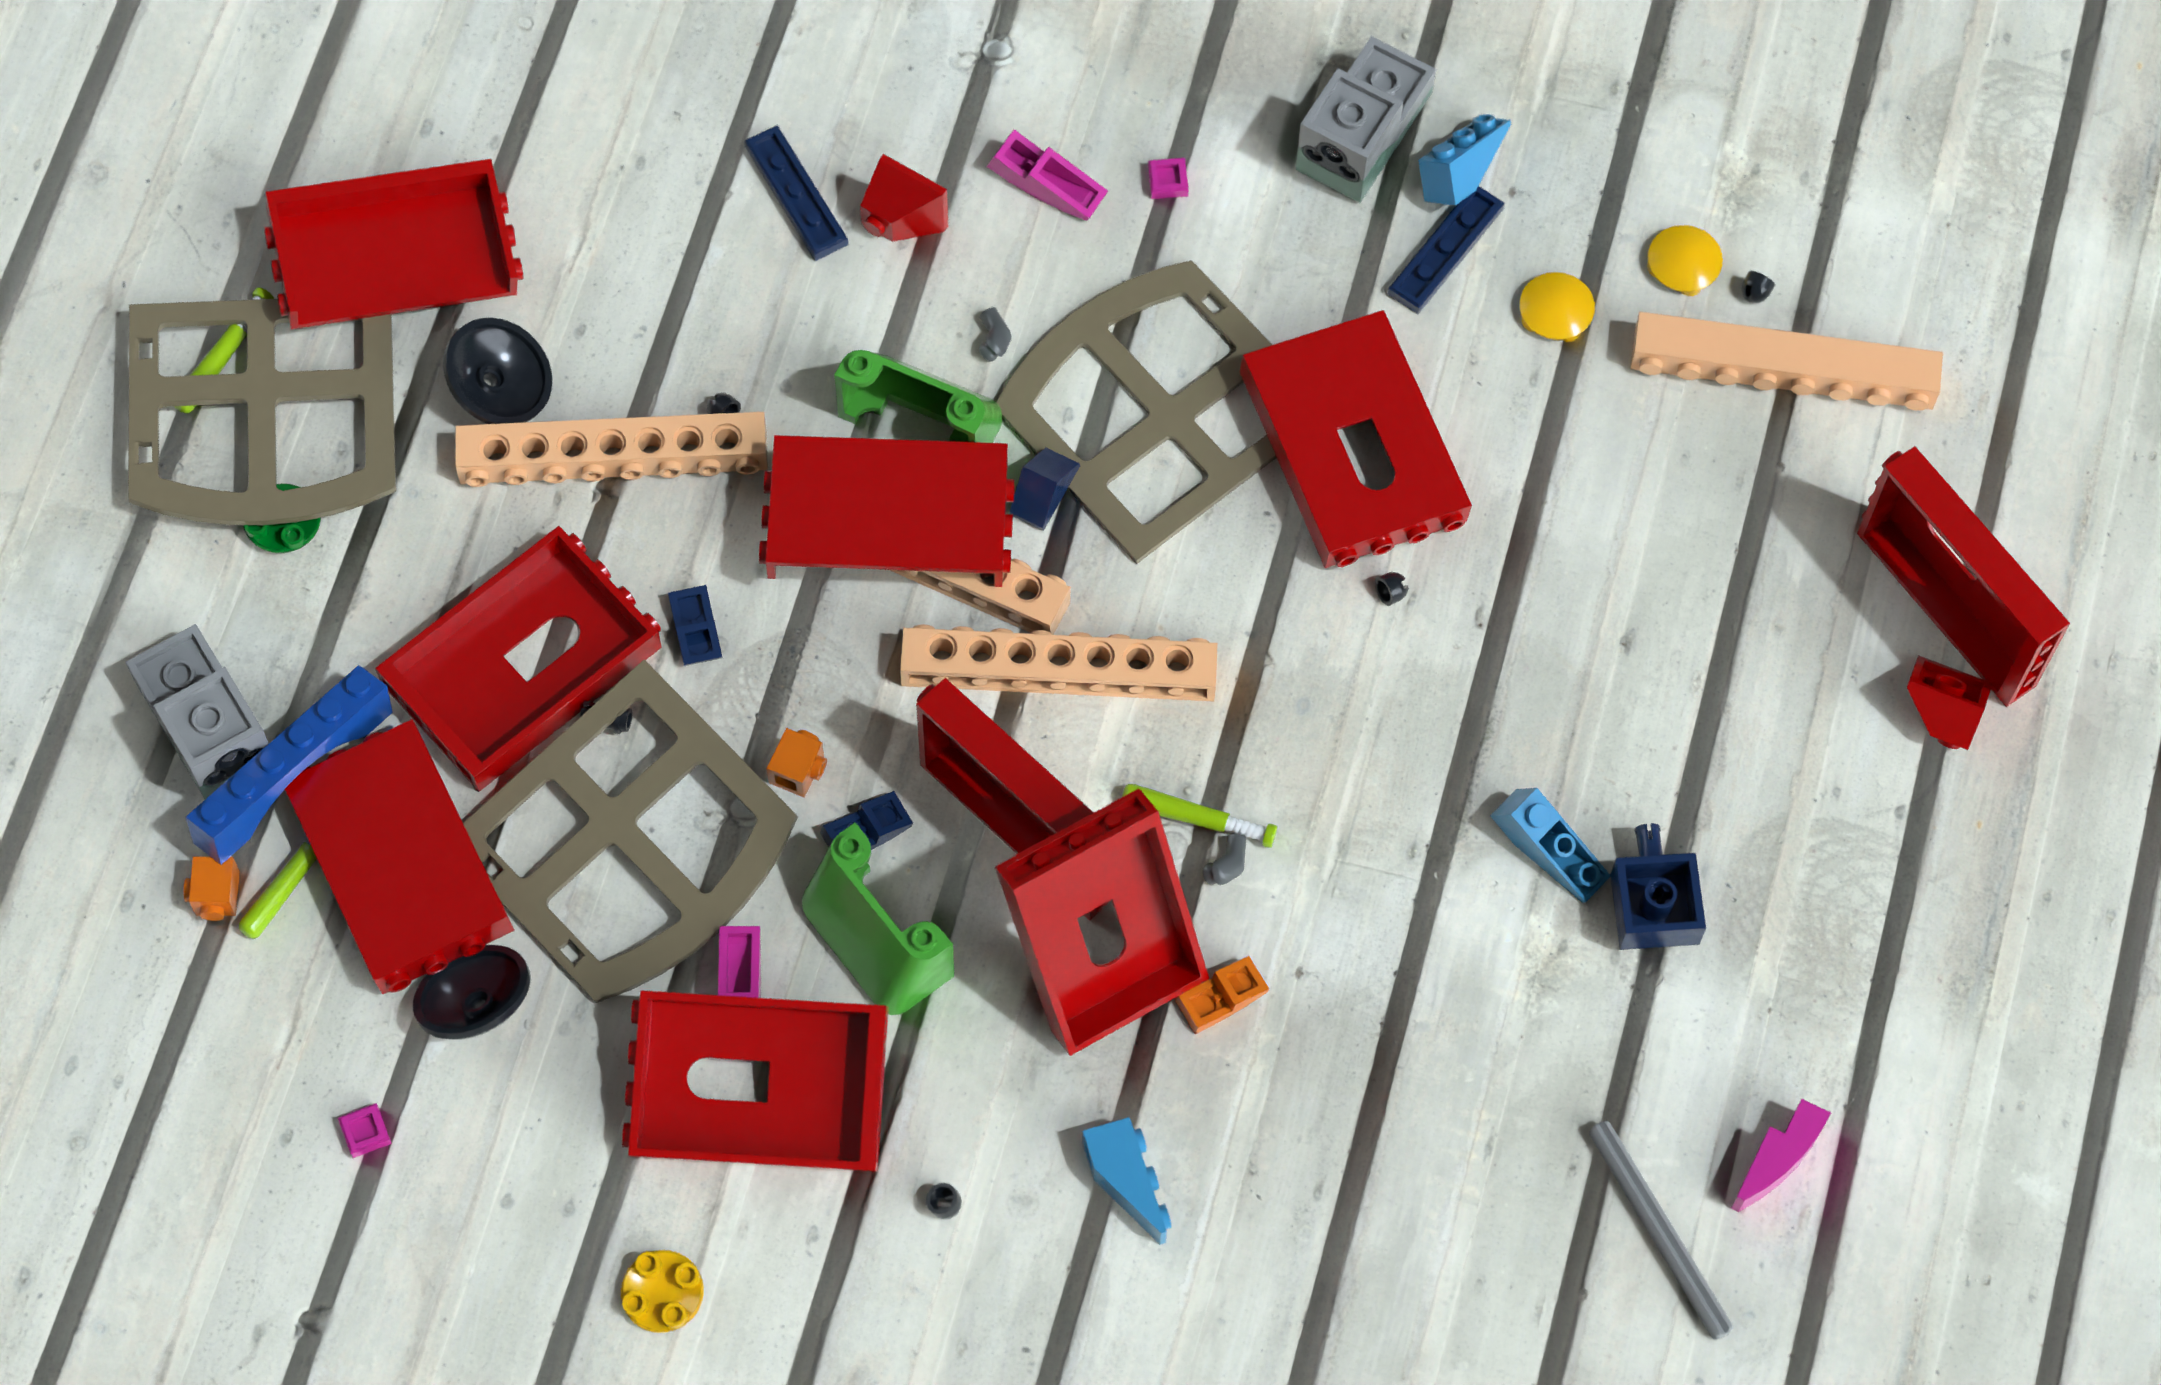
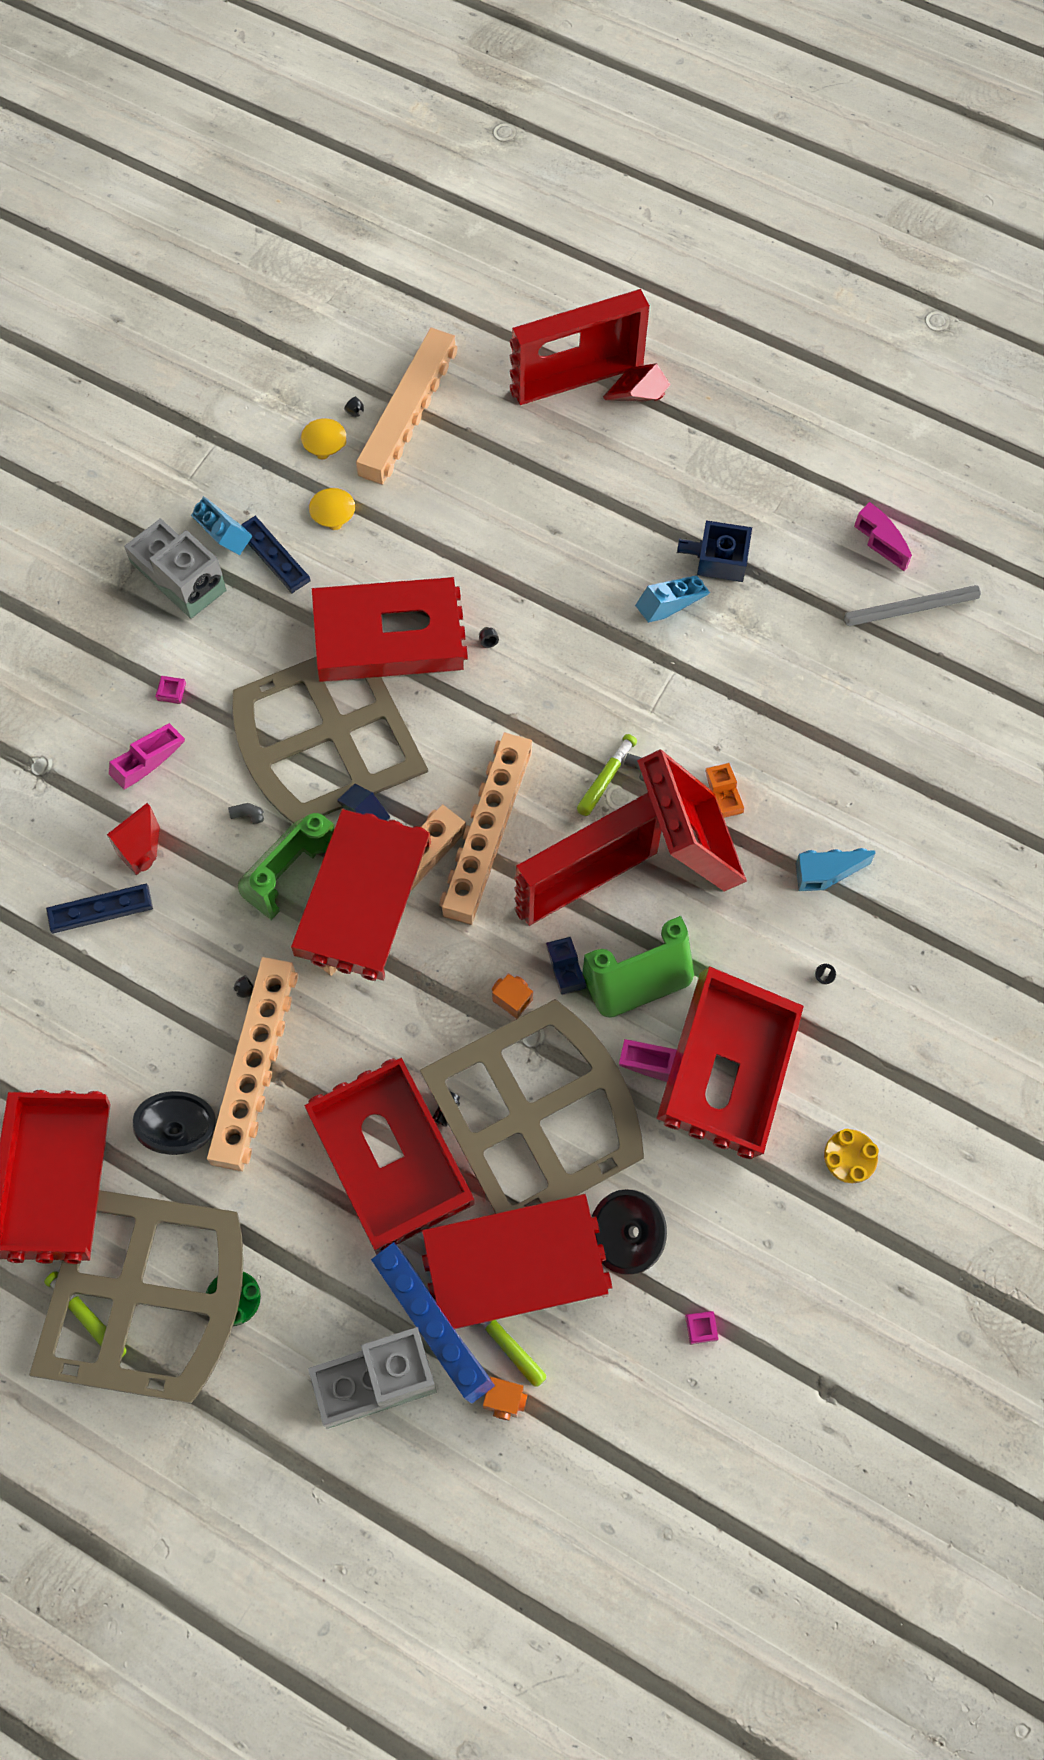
camera: 75 degrees left, 0 degrees up
(695, 625) = (396, 1039): dark blue slope -> none

